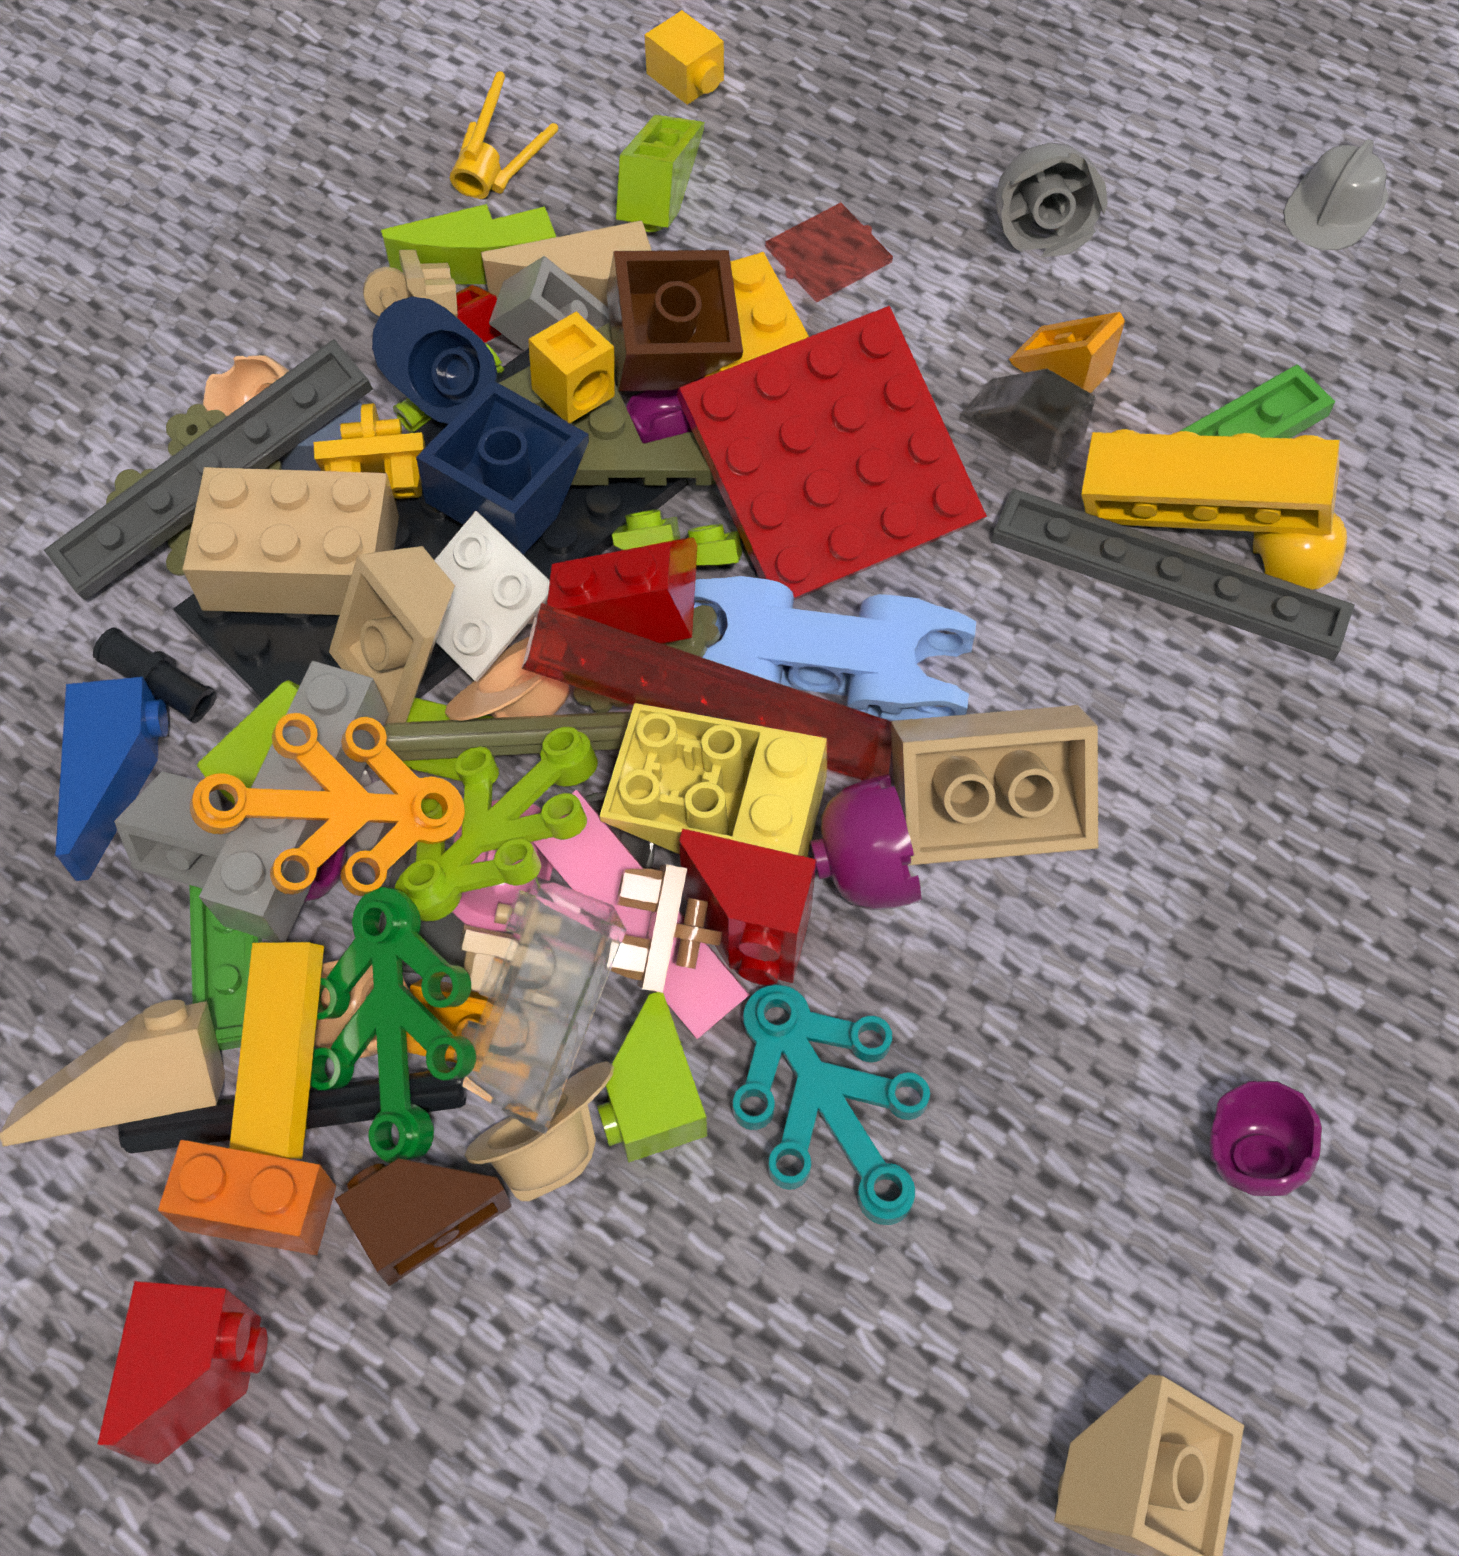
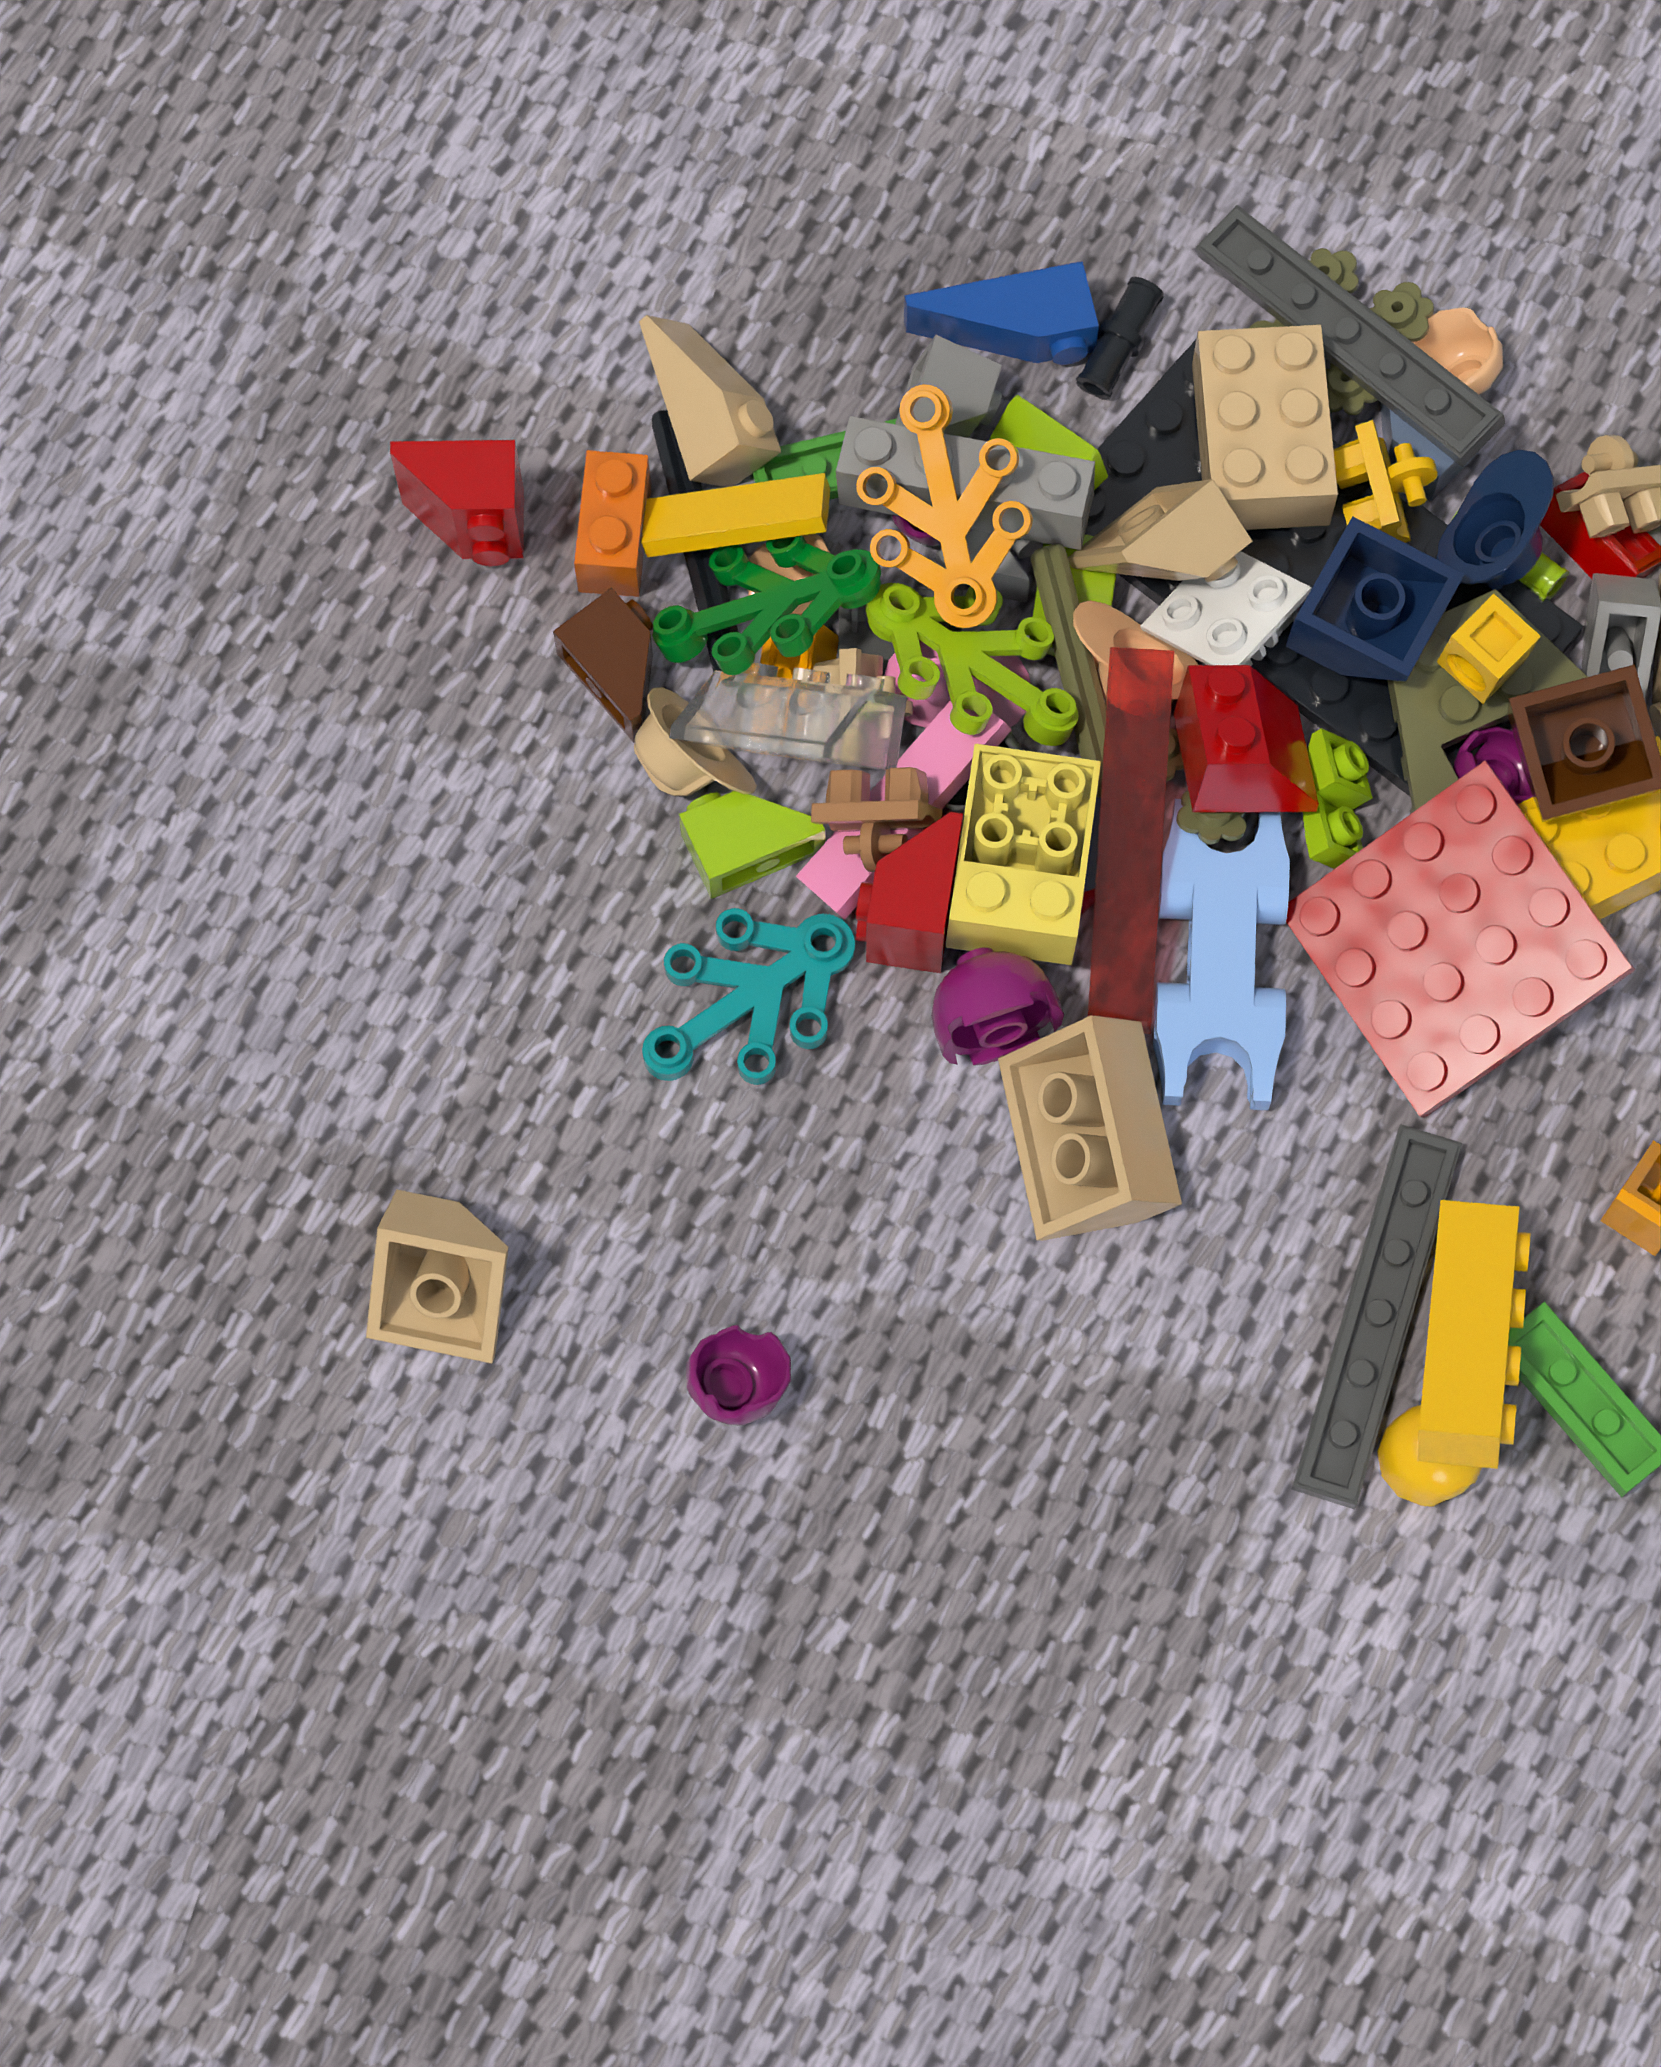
camera: 85 degrees right, 10 degrees up
(1033, 415) = (1558, 1157): clear smoke slope -> none

